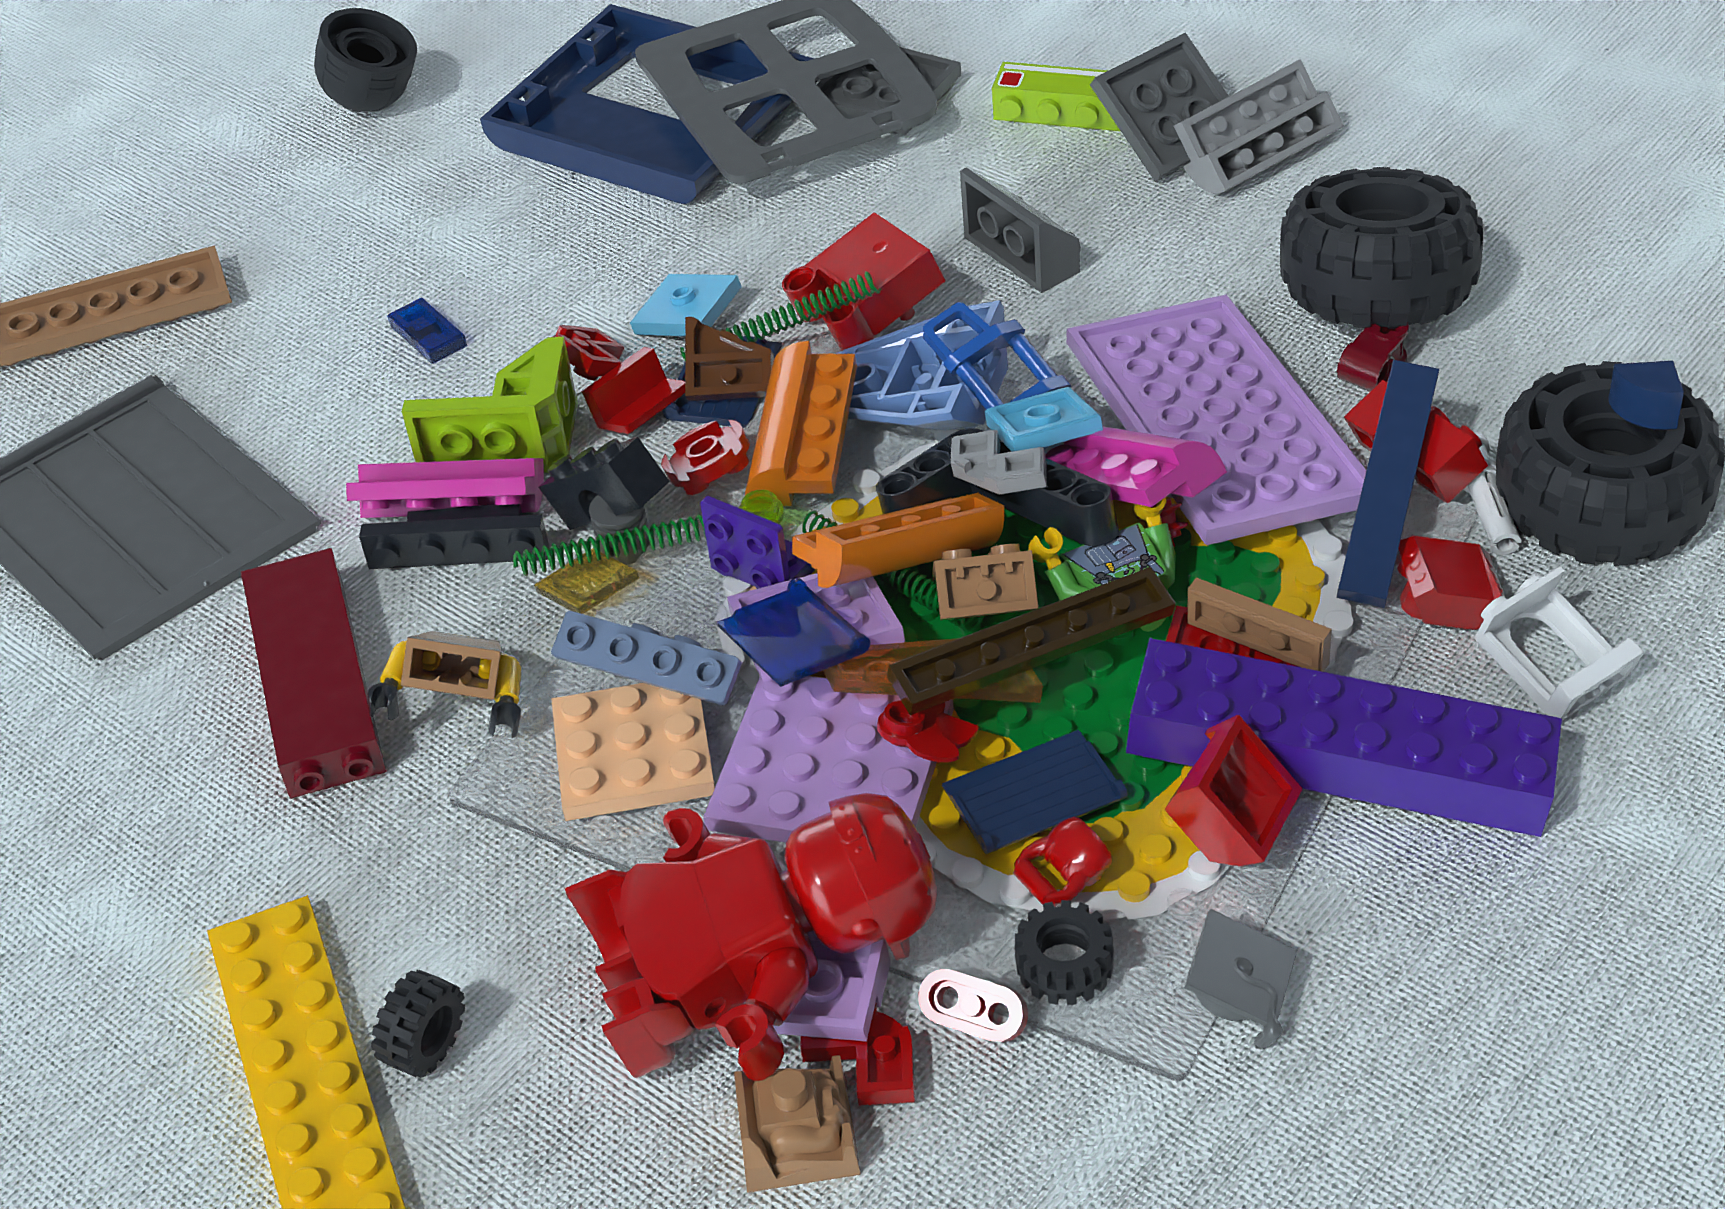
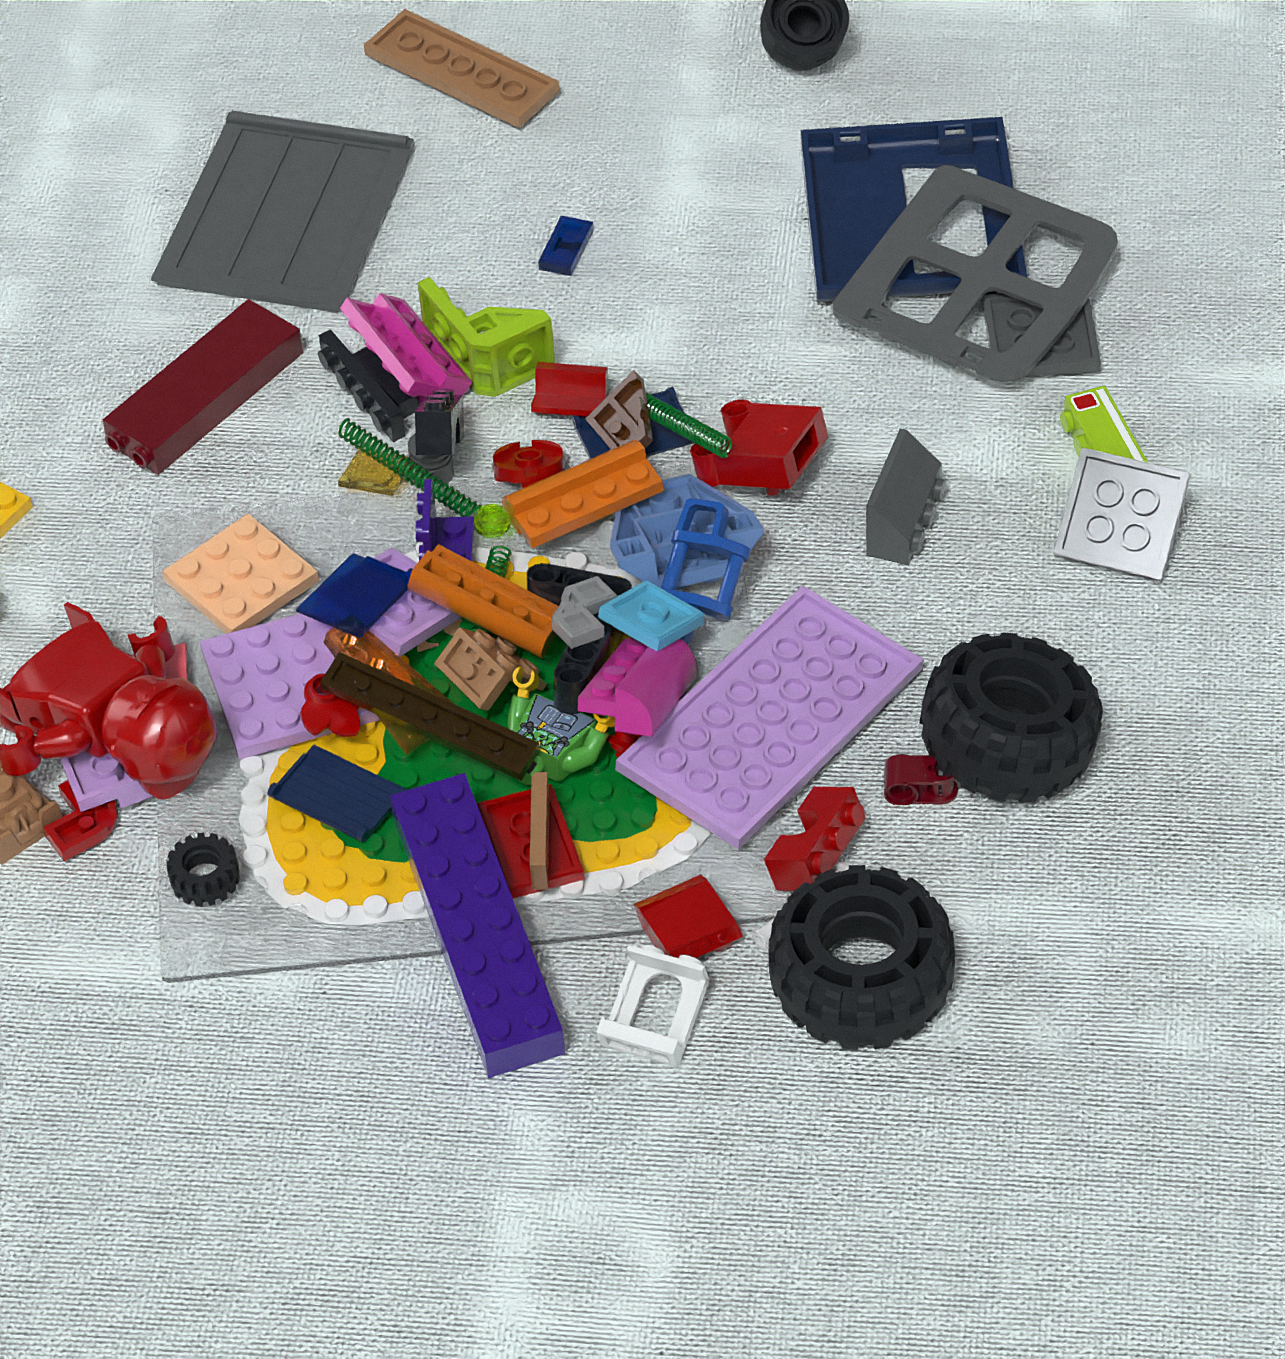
camera: 55 degrees right, 5 degrees up
(452, 666) = (234, 451): torso -> none
(590, 350) = (586, 332): red plate -> none
(647, 657) = (305, 538): sand blue bracket -> none
(685, 296) = (687, 365): medium azure plate -> none
(974, 1007) = (143, 849): plate -> none
(1073, 852) = (287, 838): red piece -> none
(1234, 796) = (372, 887): red brick -> none
(1241, 974) = (242, 961): dark grey hat -> none
(1256, 128) = (1146, 581): light grey brick -> none
(1388, 484) = (740, 837): dark blue tile -> none
(1647, 394) = (886, 931): dark blue brick -> none

